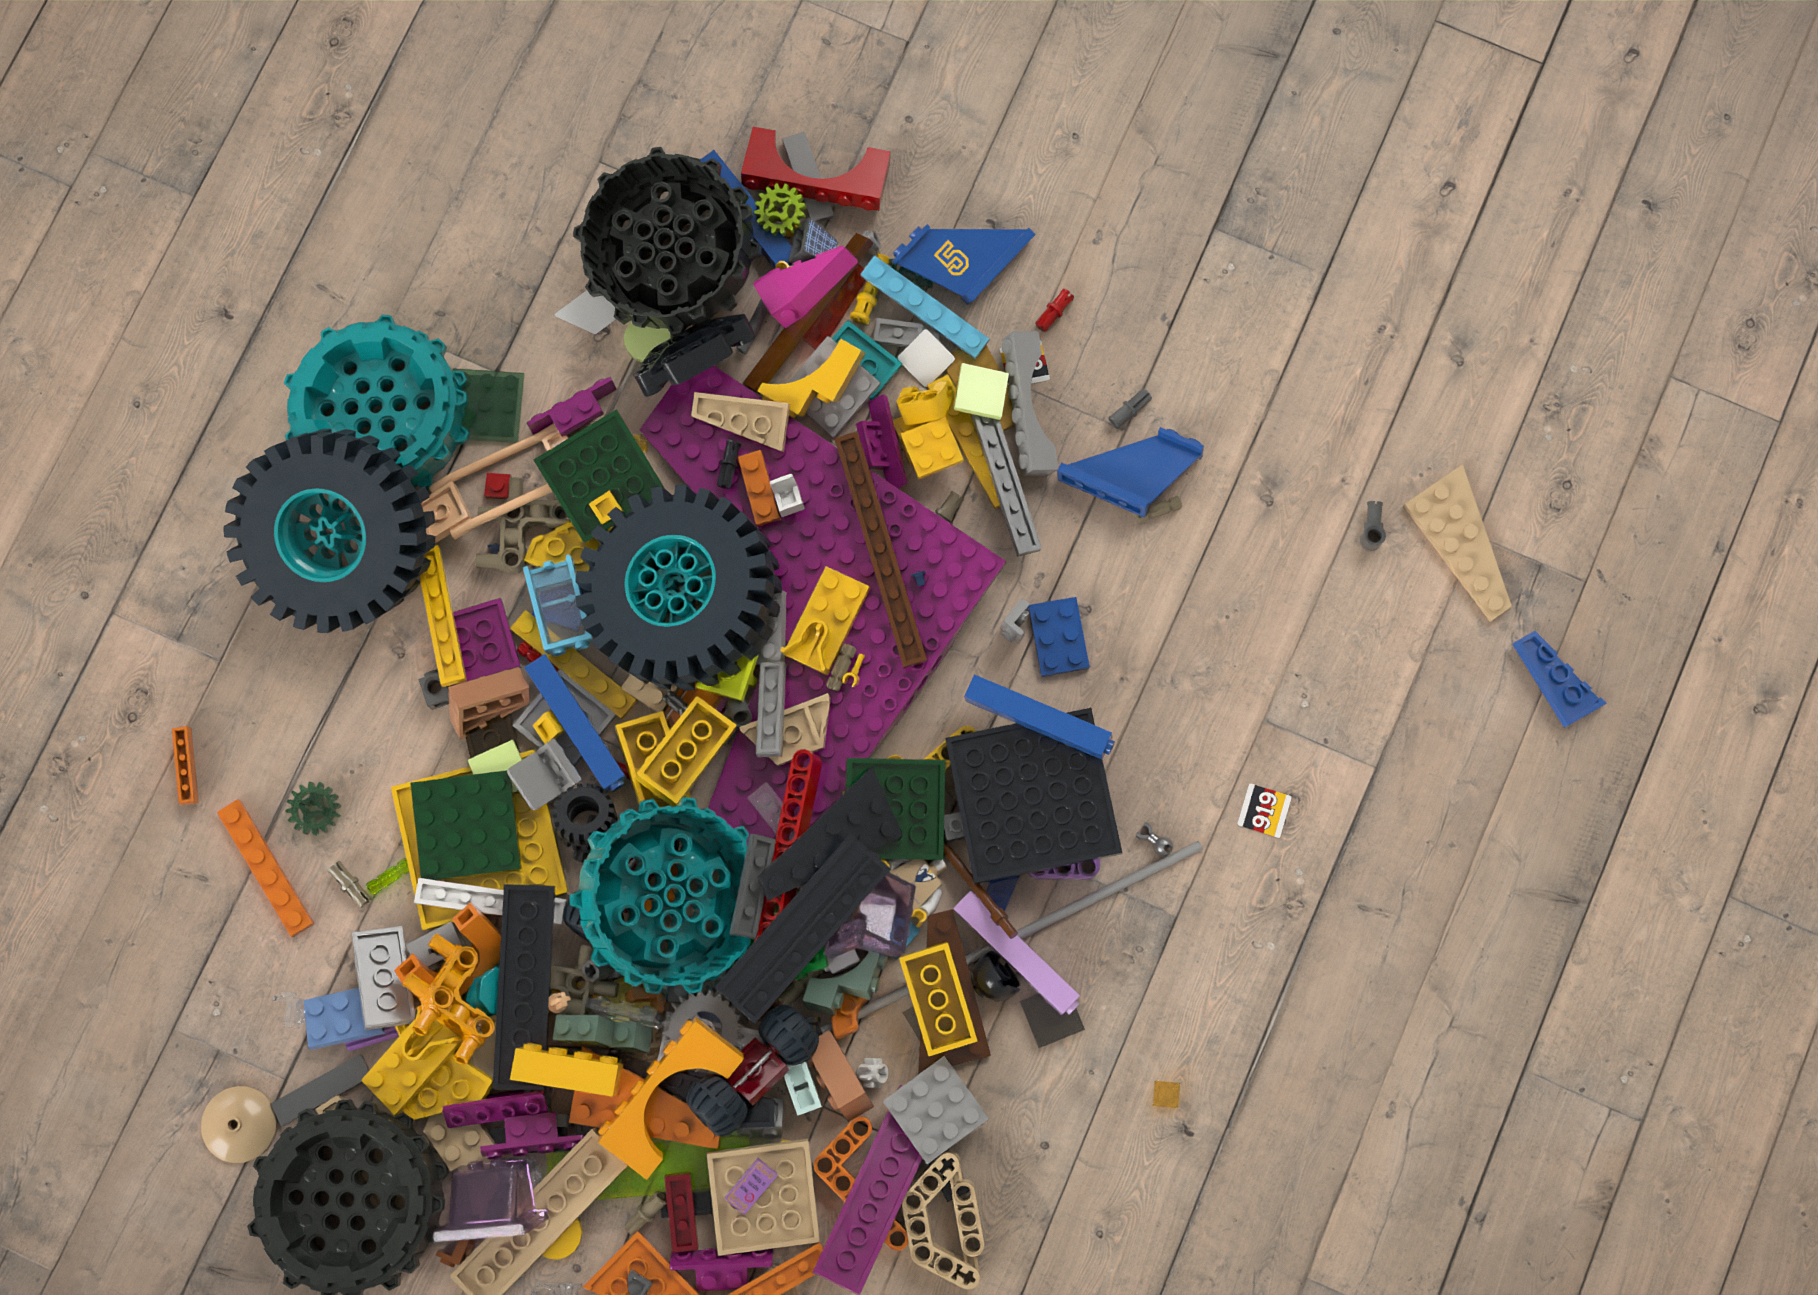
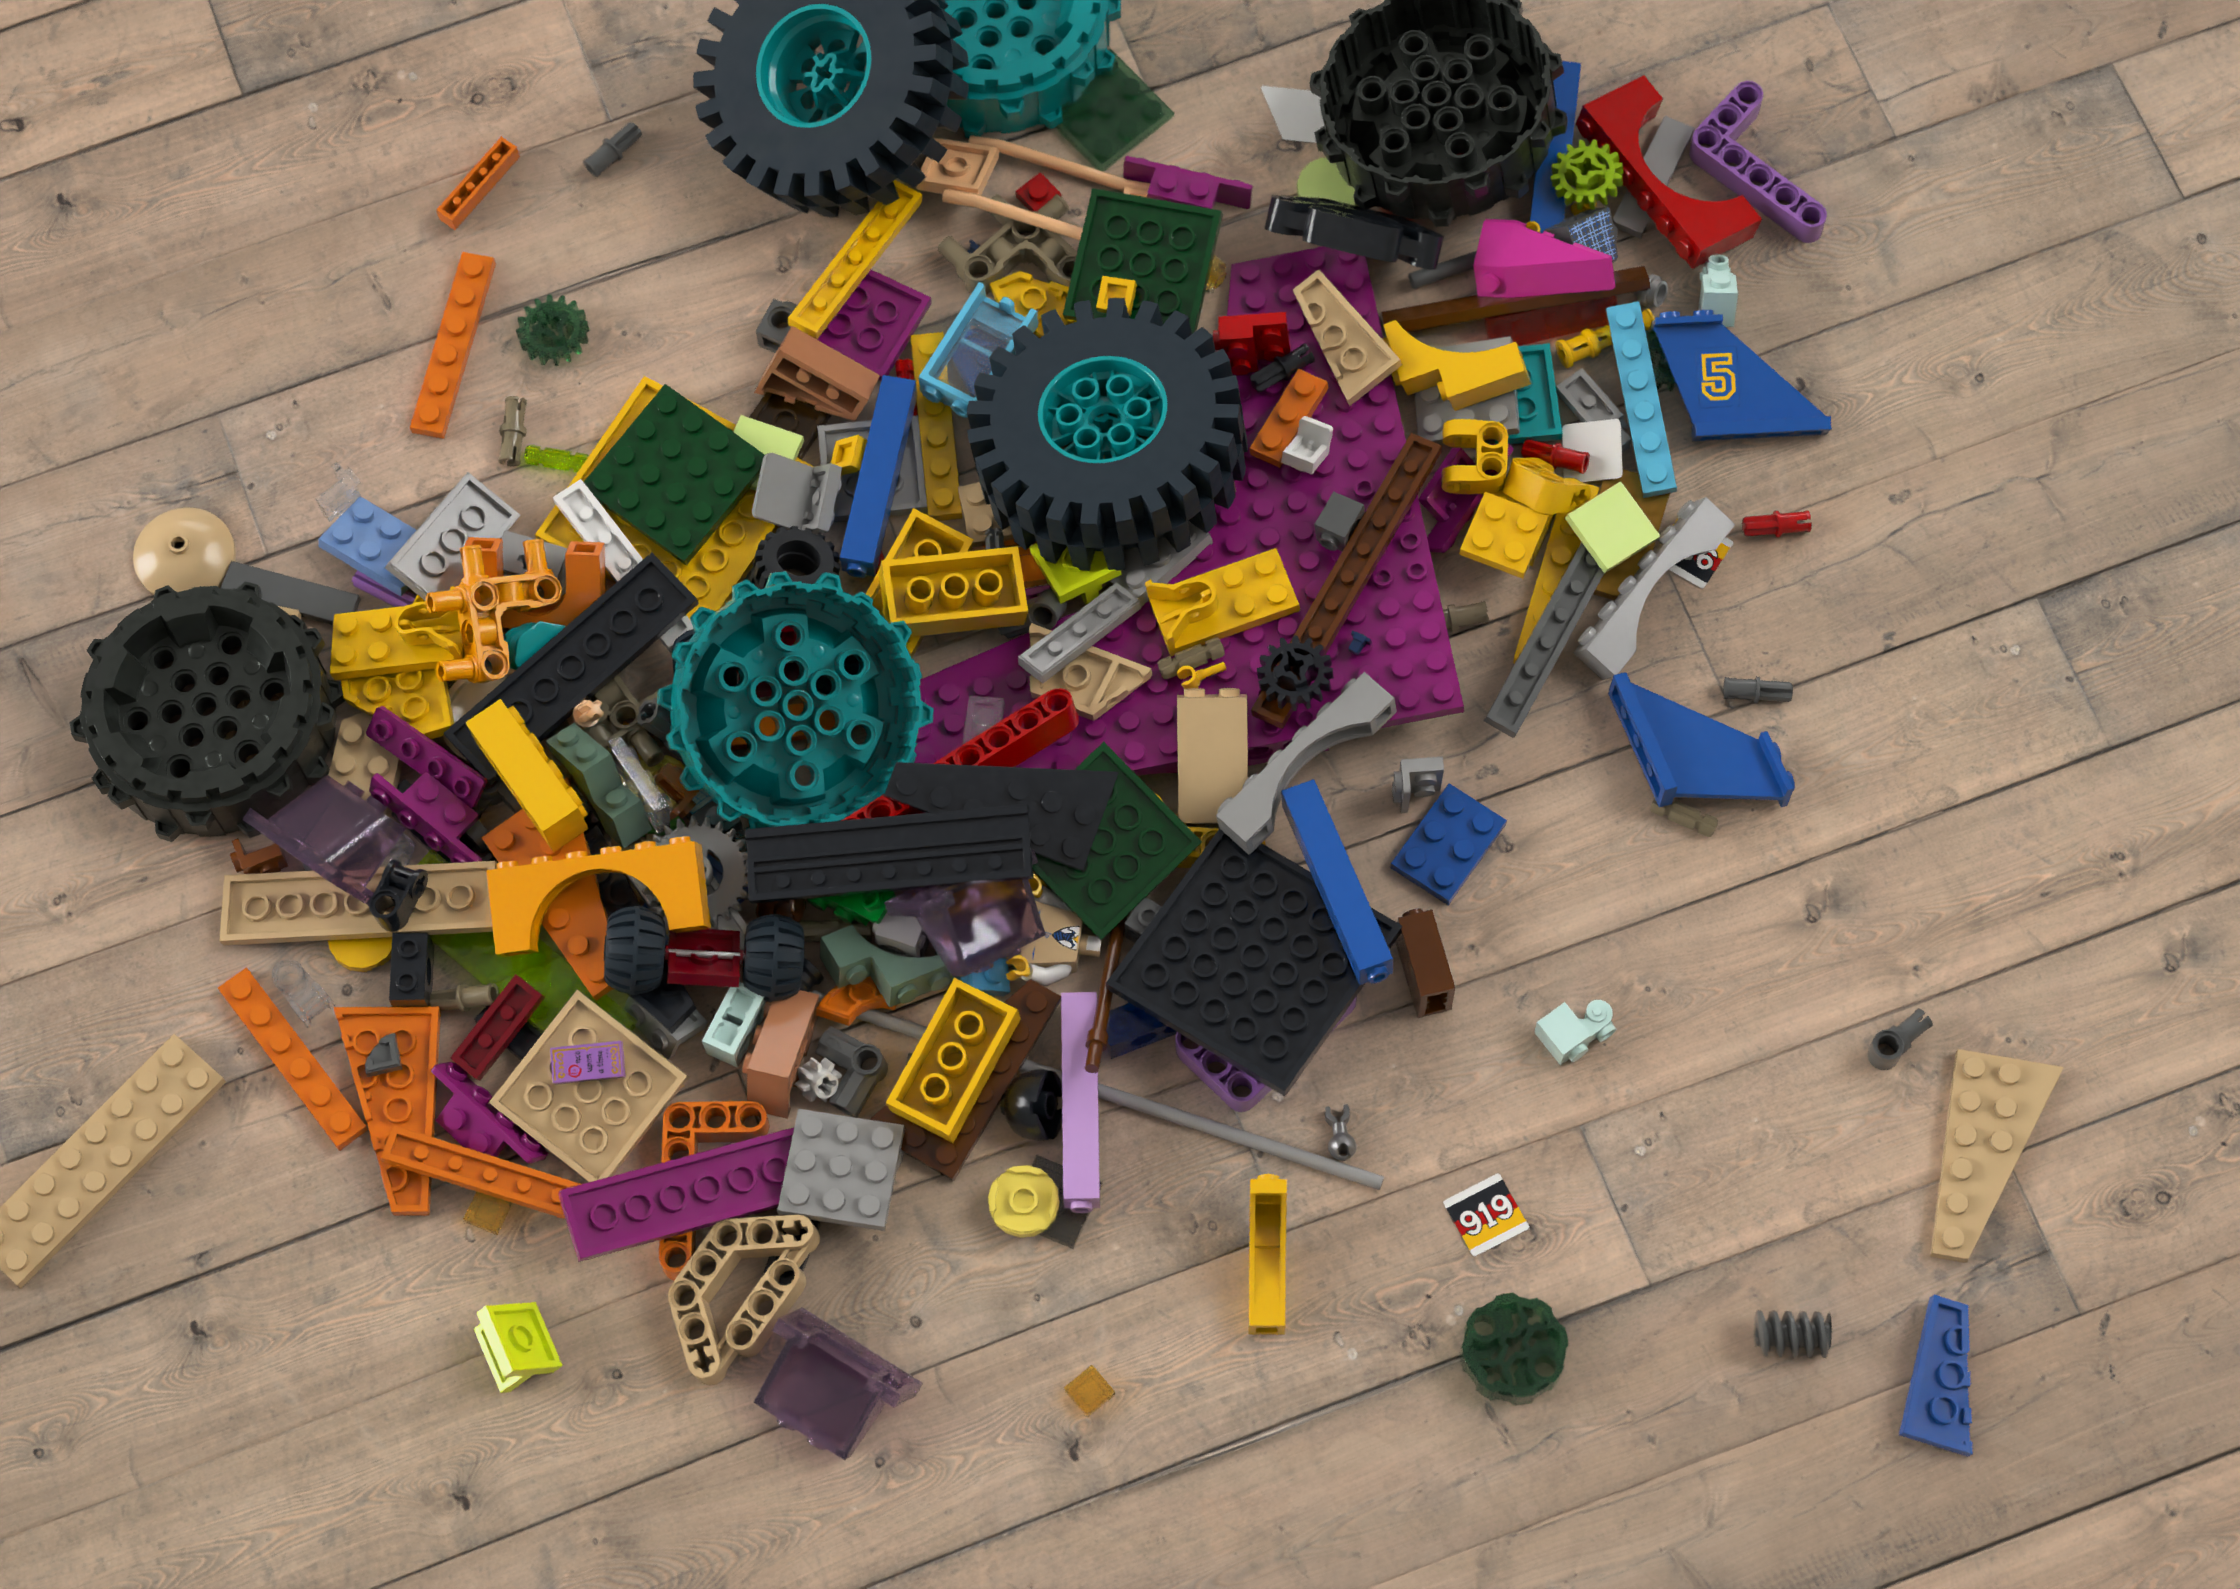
camera: 45 degrees right, 10 degrees down
(239, 676) = (612, 149): none -> dark grey axle
(559, 1196) = (397, 888): none -> black piece
(604, 1227) = (411, 970): none -> black brick
(696, 467) = (1252, 339): none -> red plate
(750, 892) = (872, 778): dark grey tile -> none
(846, 522) = (1338, 521): none -> dark grey brick
(854, 127) = (1751, 168): none -> medium lavender beam
(873, 1044) = (850, 1054): none -> dark grey piece
(879, 414) = (1472, 434): none -> yellow piece
(903, 708) = (1210, 751): none -> tan panel
(906, 211) = (1719, 289): none -> light aqua brick
(910, 378) = (1556, 455): none -> red axle
(913, 617) = (1282, 683): none -> black gear
(959, 617) = (1354, 714): none -> light grey arch
(1039, 1032) = (1023, 1201): none -> light yellow tile
(1041, 1221) = (829, 1384): none -> clear purple windscreen
(1114, 712) = (1425, 963): none -> reddish brown brick
(1189, 942) = (1267, 1254): none -> yellow arch
(1217, 680) = (1569, 1036): none -> light aqua brick
(1371, 877) = (1479, 1349): none -> clear green connector
(1468, 726) = (1793, 1333): none -> dark grey piece

